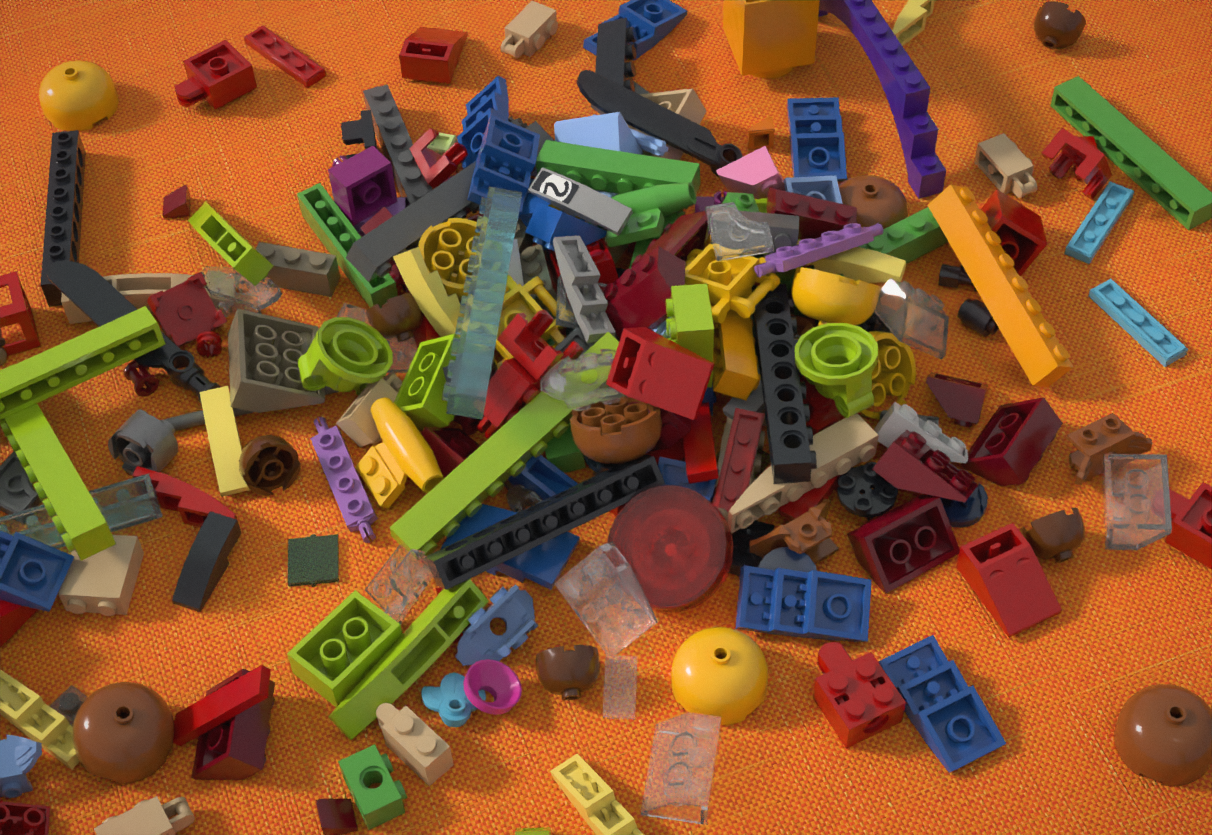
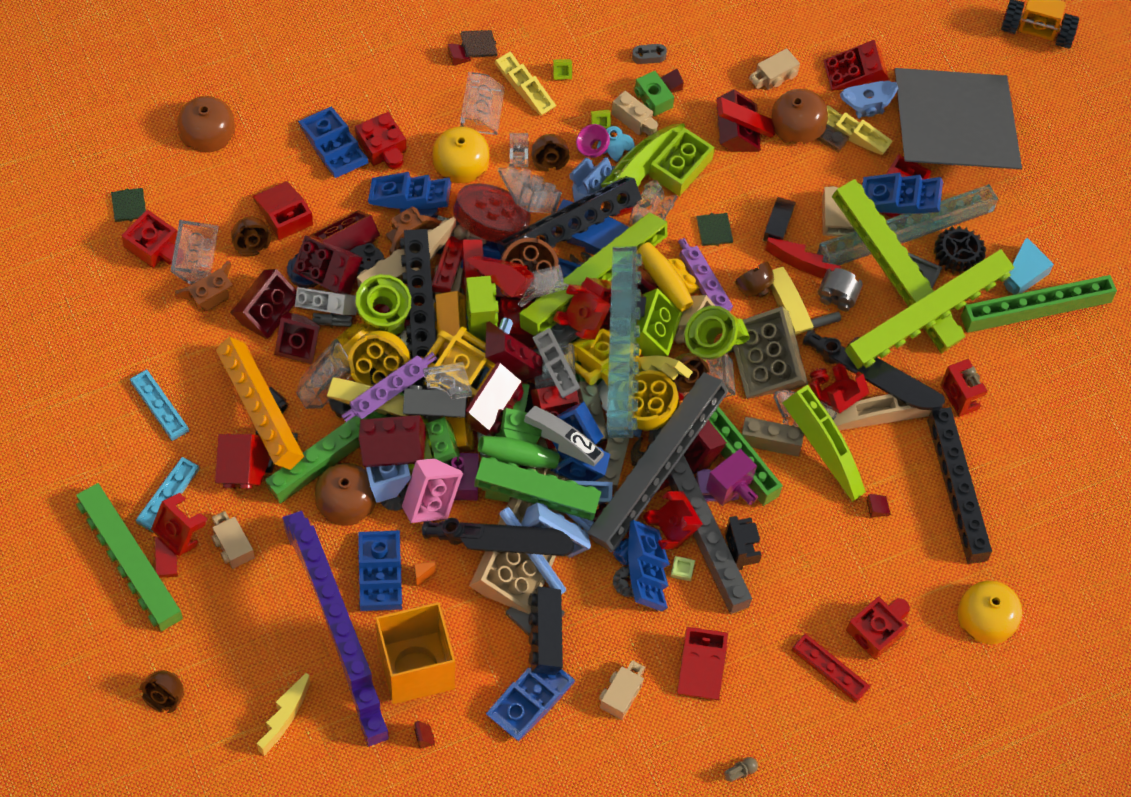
camera: 170 degrees right, 10 degrees up
(474, 736) = (601, 118): none -> lime tile
(504, 160) = (624, 482): blue slope -> none

